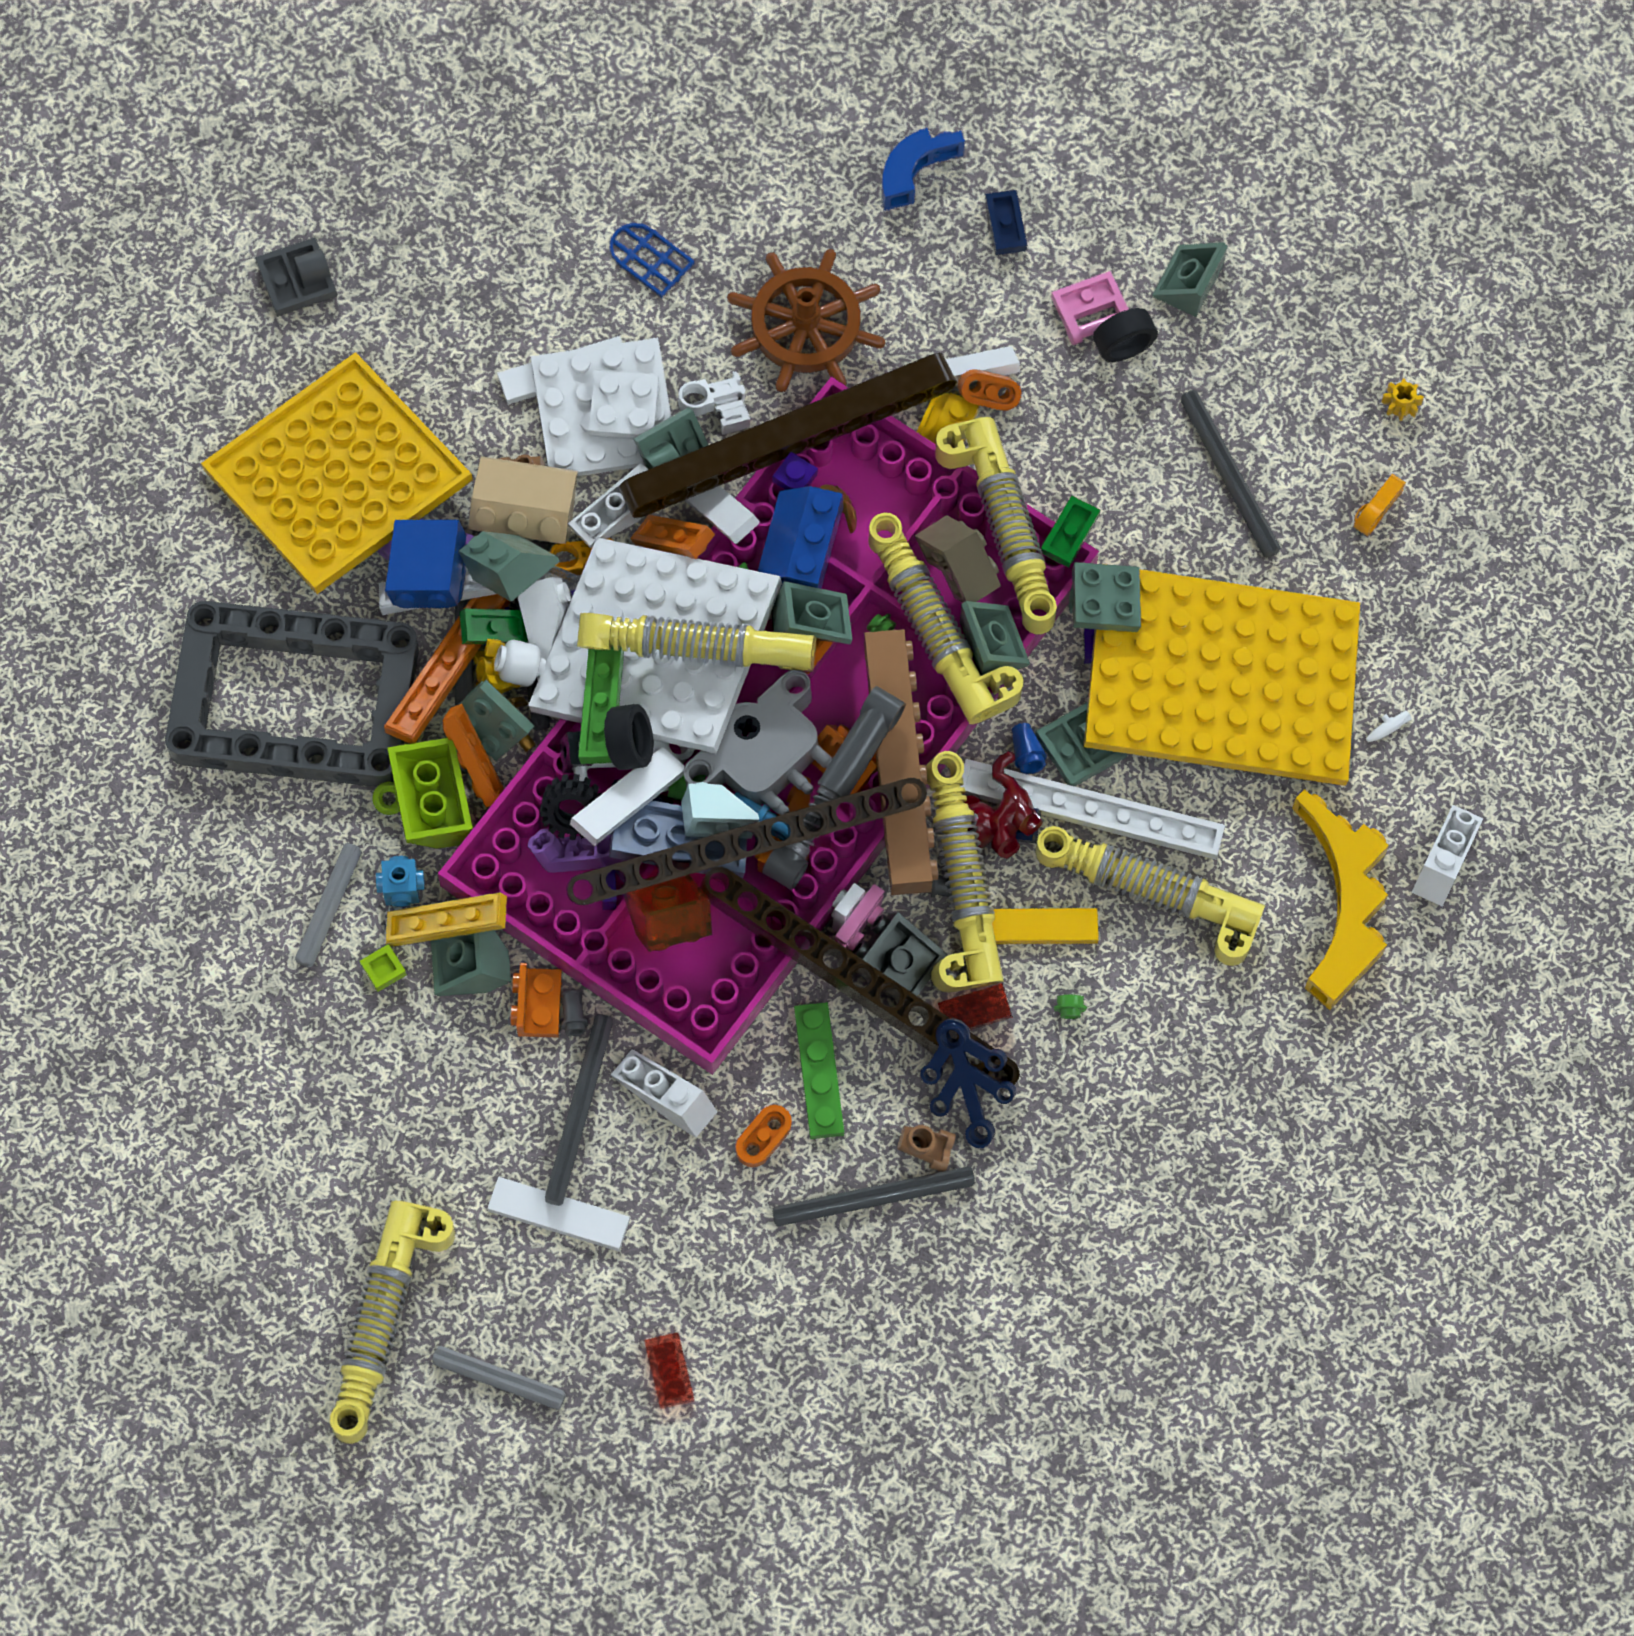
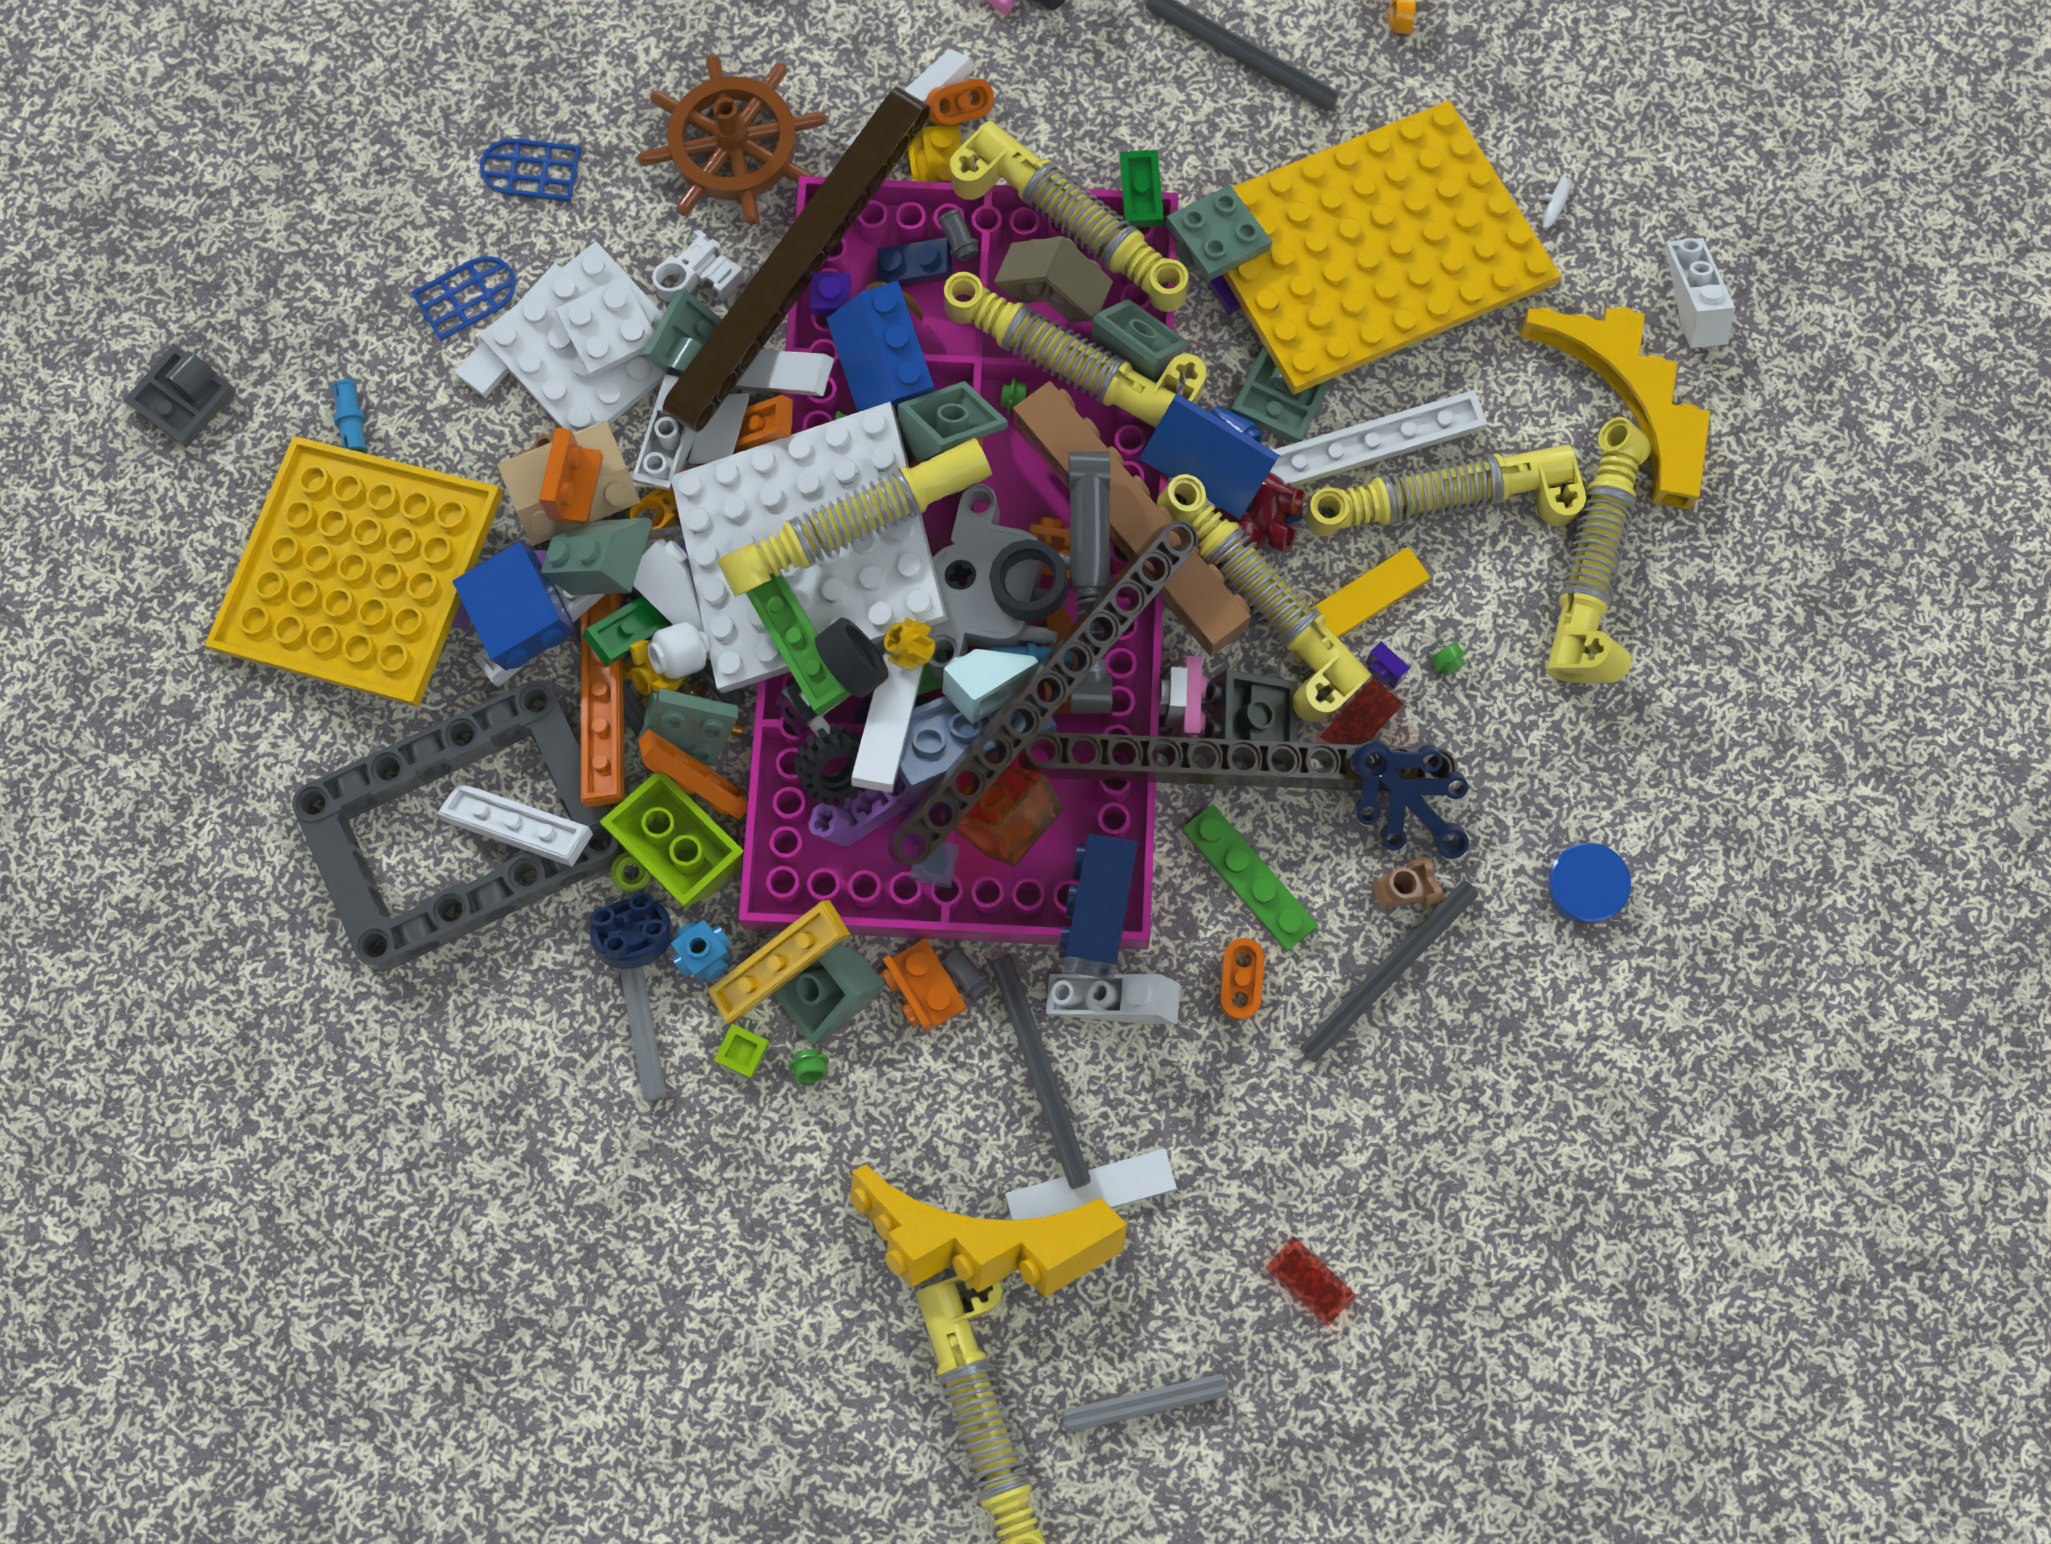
camera: 30 degrees left, 5 degrees up
(330, 715) = (515, 824): none -> white tile
(361, 838) = (631, 932): none -> dark blue tile
(403, 361) = (349, 416): none -> dark azure pin
(422, 1007) = (809, 1066): none -> bright green plate
(454, 1200) = (984, 1251): none -> yellow arch
(521, 497) = (570, 479): none -> orange bracket
(532, 329) = (460, 308): none -> blue window
(597, 918) = (939, 867): none -> clear light blue plate
(653, 527) = (721, 432): none -> white sticker
(676, 753) = (909, 644): none -> yellow gear
(687, 1013) = (1097, 905): none -> dark blue brick
(789, 783) = (1023, 551): none -> black tyre
(874, 488) = (915, 262): none -> dark blue plate
(914, 488) = (958, 235): none -> dark grey pin
(988, 755) = (1212, 451): none -> blue tile
(1019, 983) = (1386, 666): none -> dark purple plate
(1059, 1225) = (1589, 883): none -> blue tile
(1168, 1058) = (1594, 562): none -> light yellow piece

